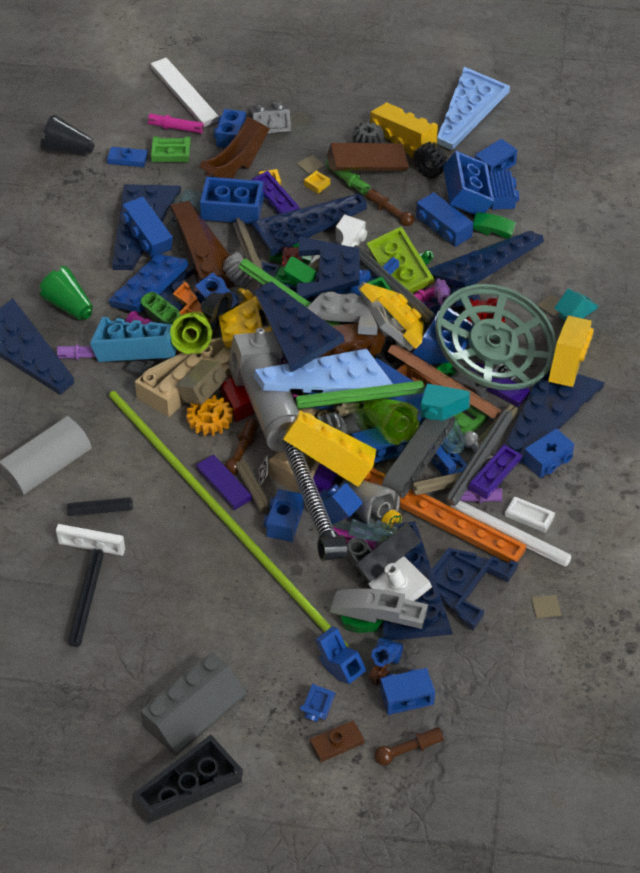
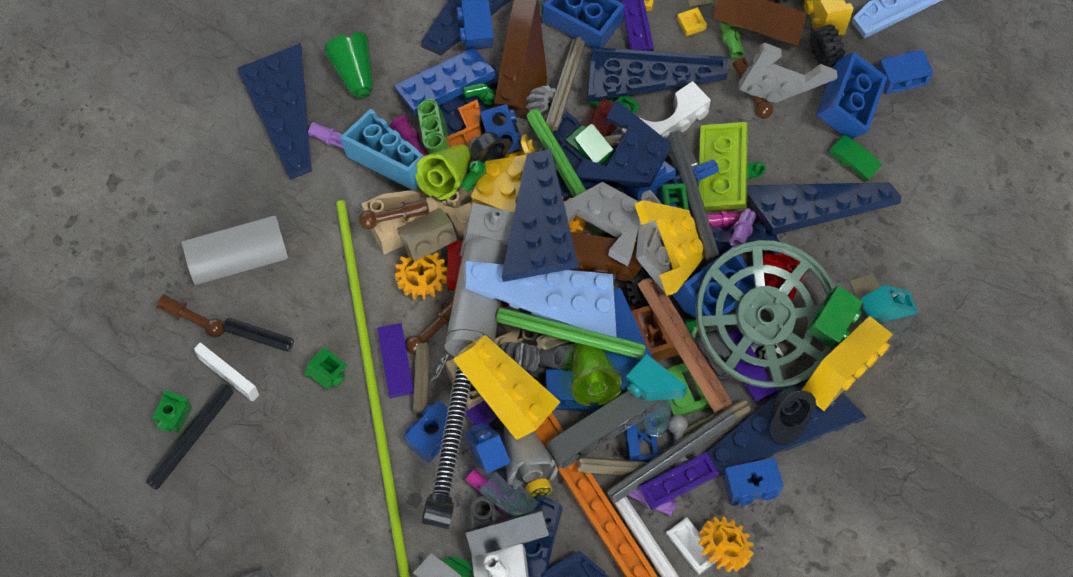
camera: 25 degrees right, 15 degrees up
(58, 516) = (213, 327): none -> reddish brown pin
(60, 584) = (175, 420): none -> green brick
(139, 367) = (383, 184): dark grey tile -> none
(150, 387) = (370, 219): none -> reddish brown pin
(173, 506) = (326, 369): none -> green brick
(183, 276) = (482, 91): none -> green arm
(219, 321) = (476, 172): none -> green arm
(405, 191) = (778, 83): none -> light grey wing
(444, 219) = (802, 129): blue brick -> none
(503, 190) = (889, 116): blue brick -> none
(545, 319) = (835, 316): none -> green brick
(552, 394) = (791, 414): none -> black piece
(554, 499) = (725, 544): none -> light orange gear

